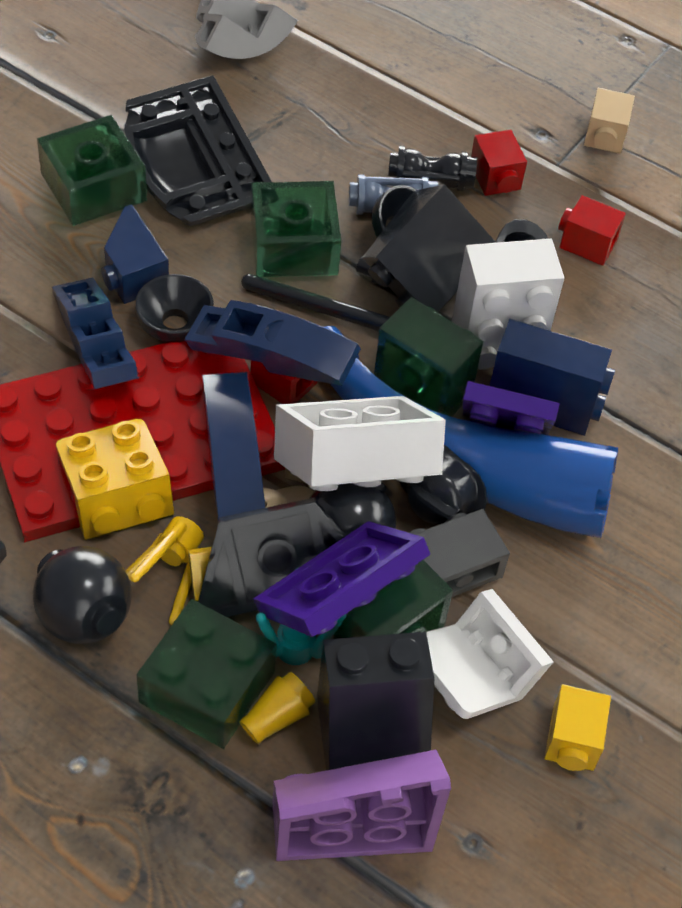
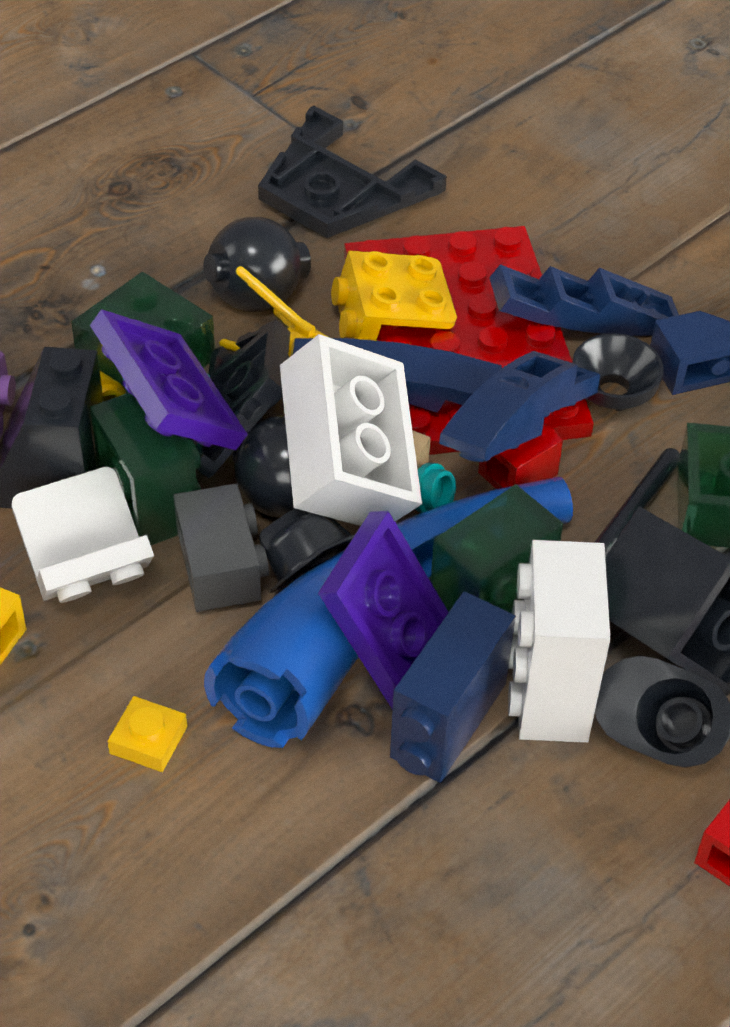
camera: 105 degrees right, 5 degrees down
(629, 586) = (147, 734): none -> yellow plate

